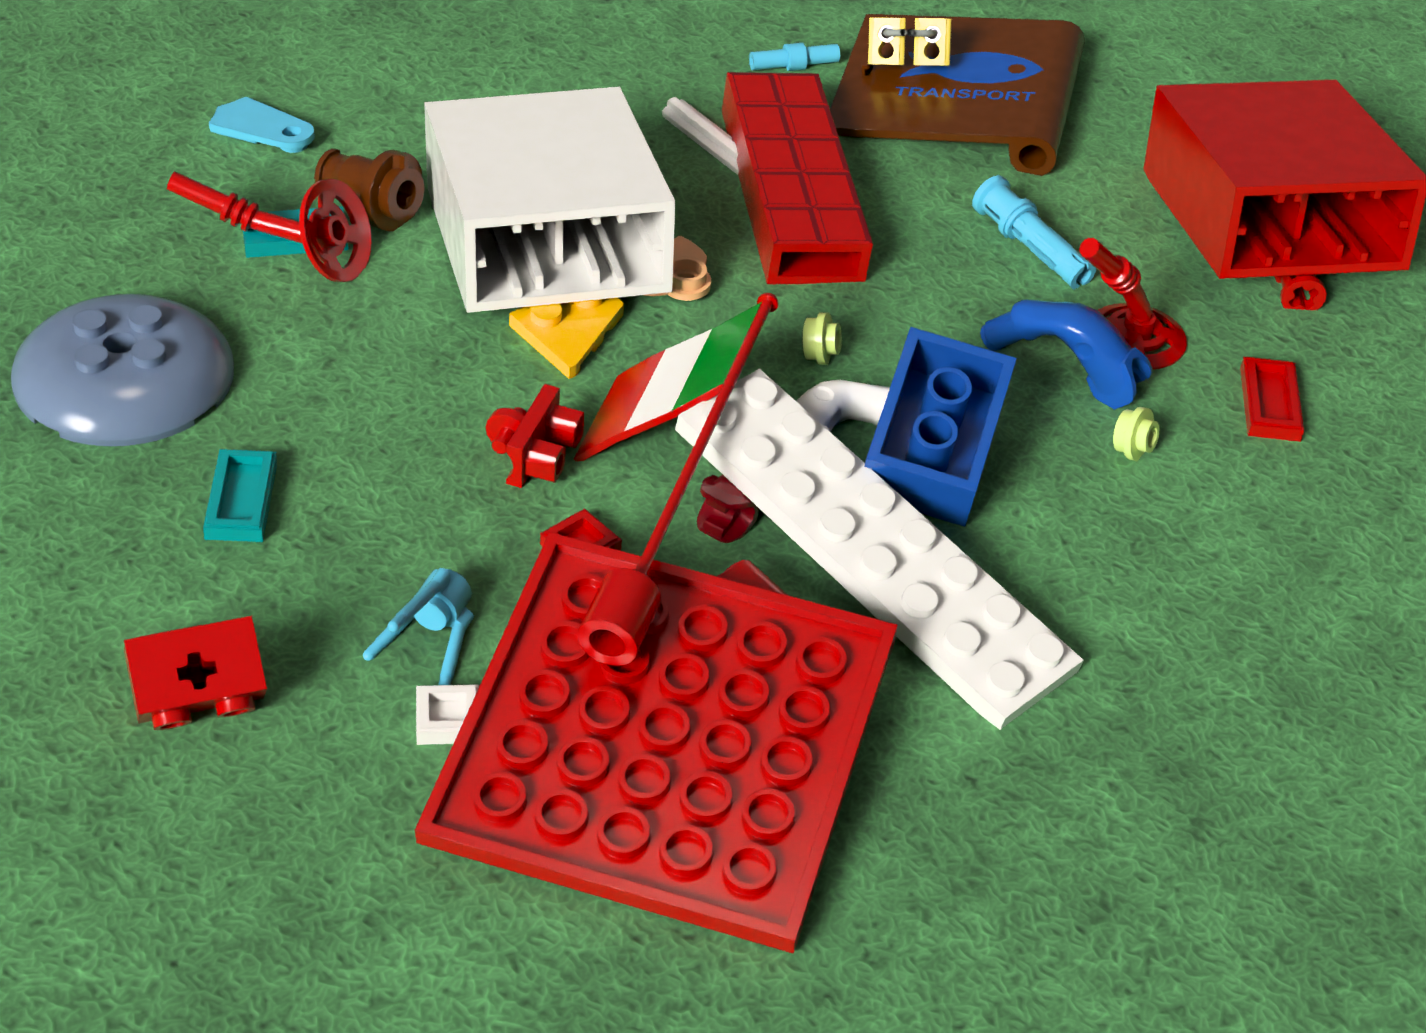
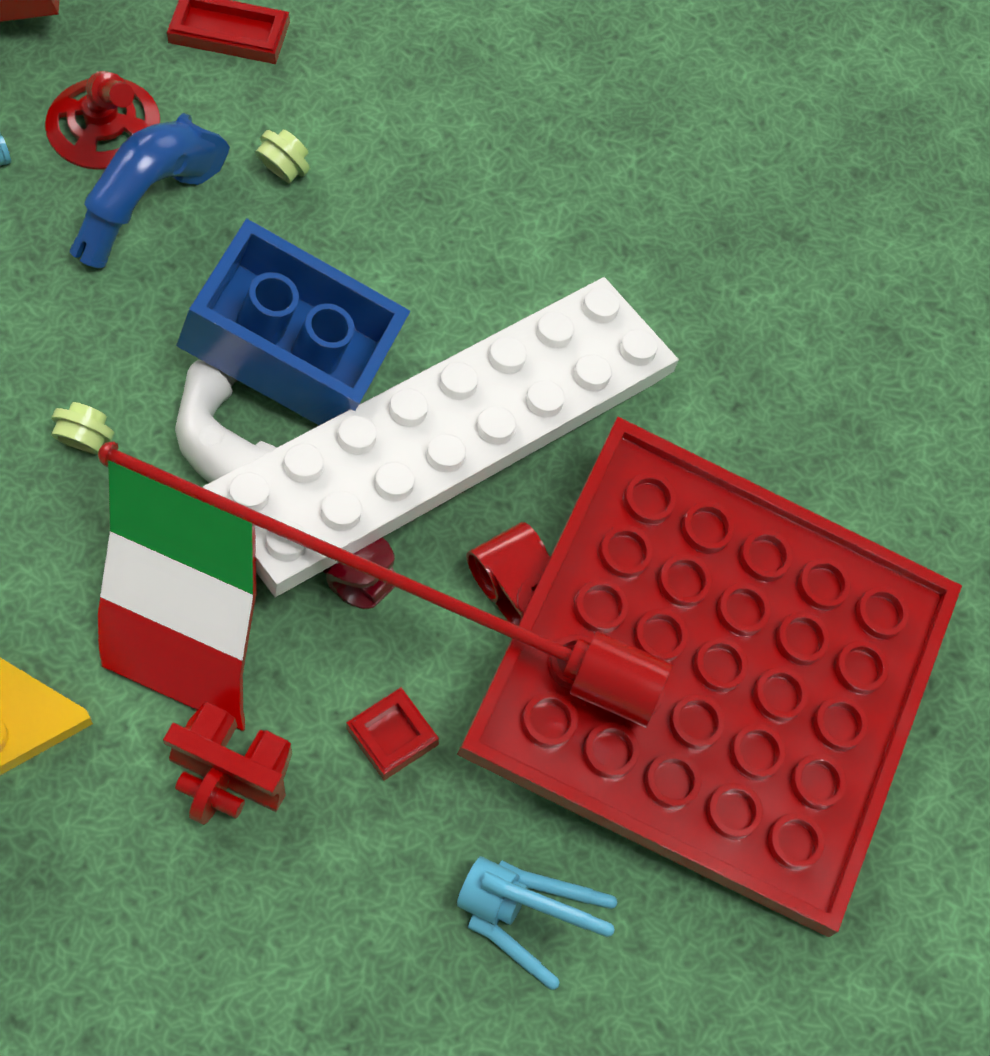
camera: 85 degrees left, 20 degrees up
(442, 712) = (652, 896): white tile -> none

